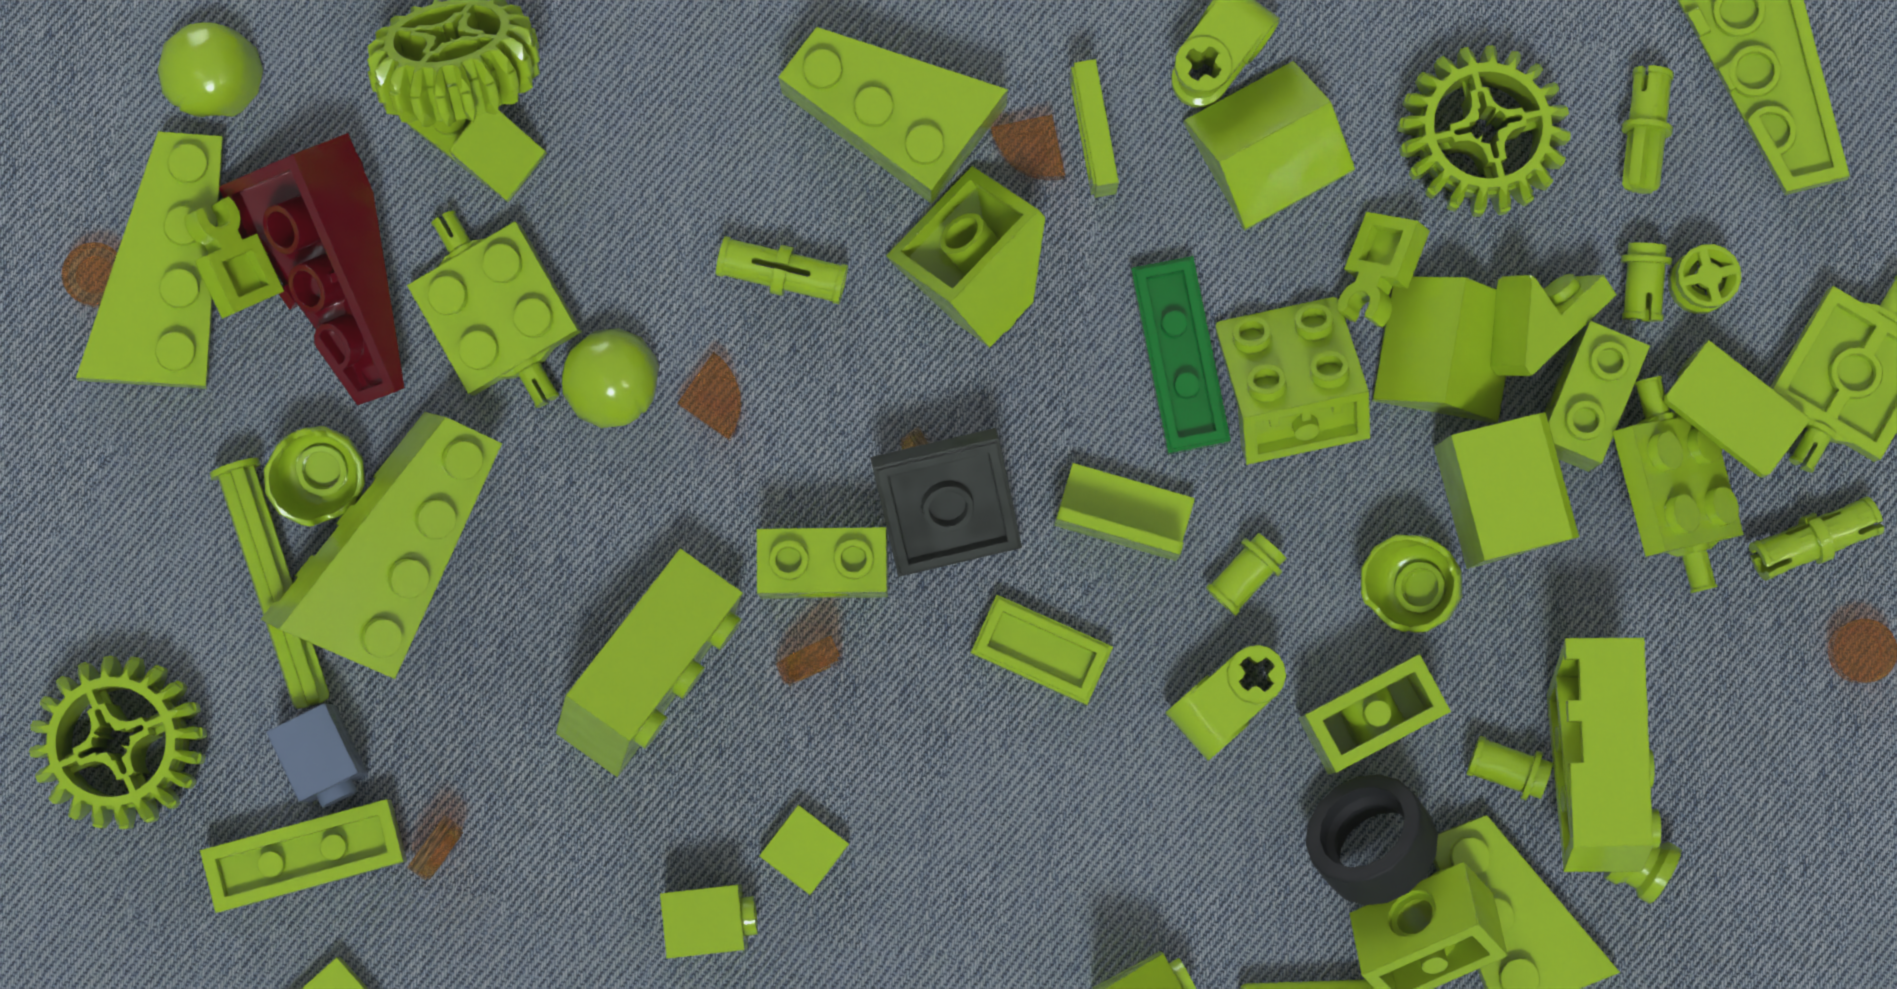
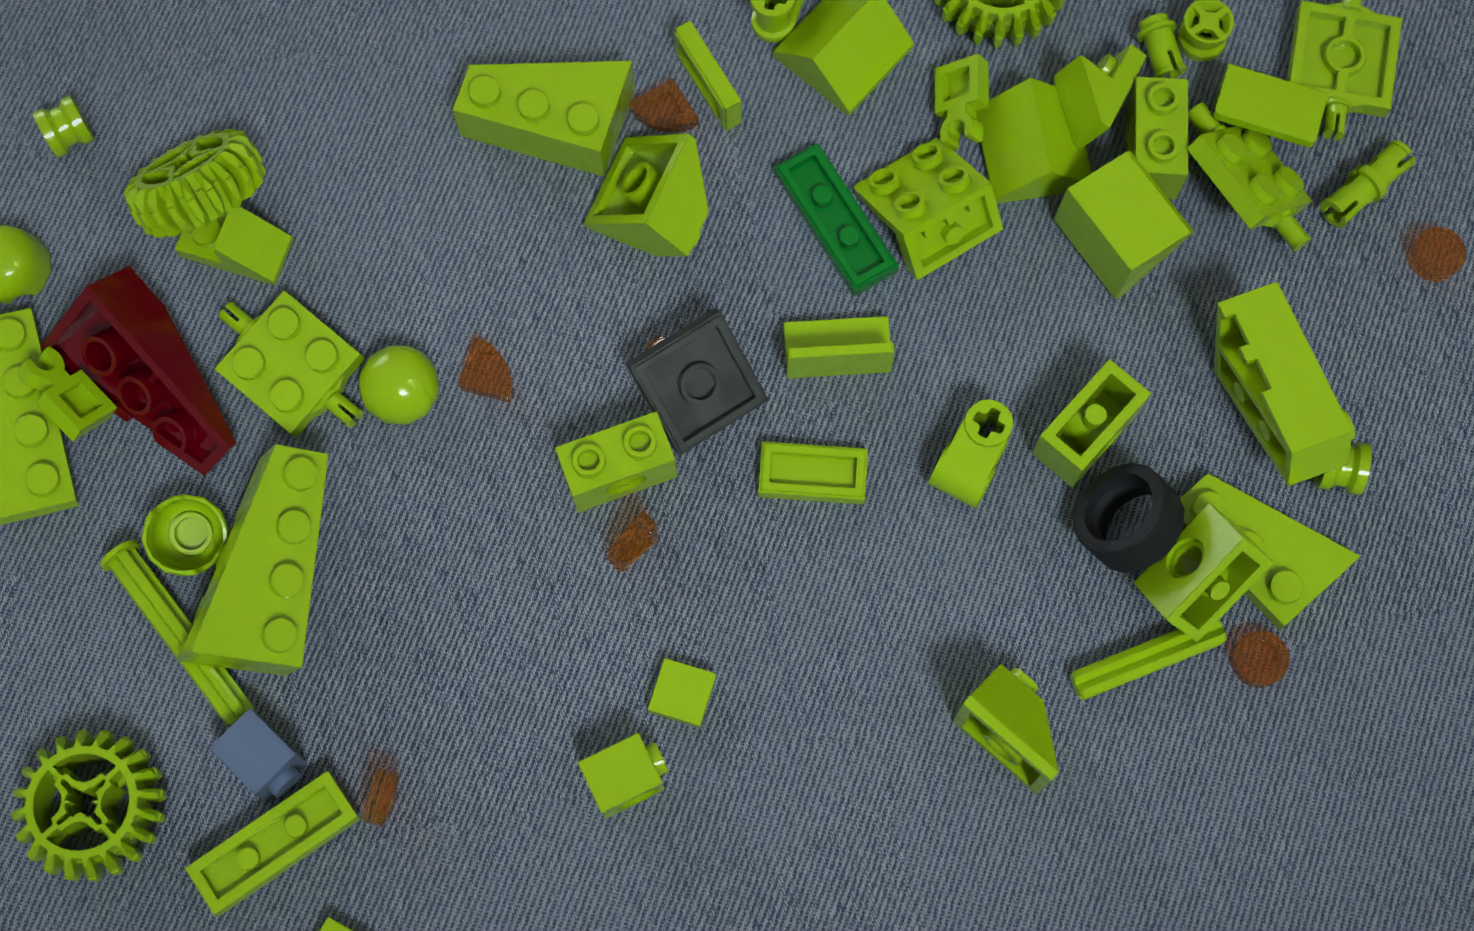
camera: 20 degrees left, 10 degrees down
(649, 662) = (503, 587): lime wedge -> none
(821, 281) = (505, 258): lime pin -> none
(1246, 573) = (949, 358): lime pin -> none
(1411, 583) = (1079, 317): lime hair -> none
(1510, 768) = (1211, 431): lime pin -> none

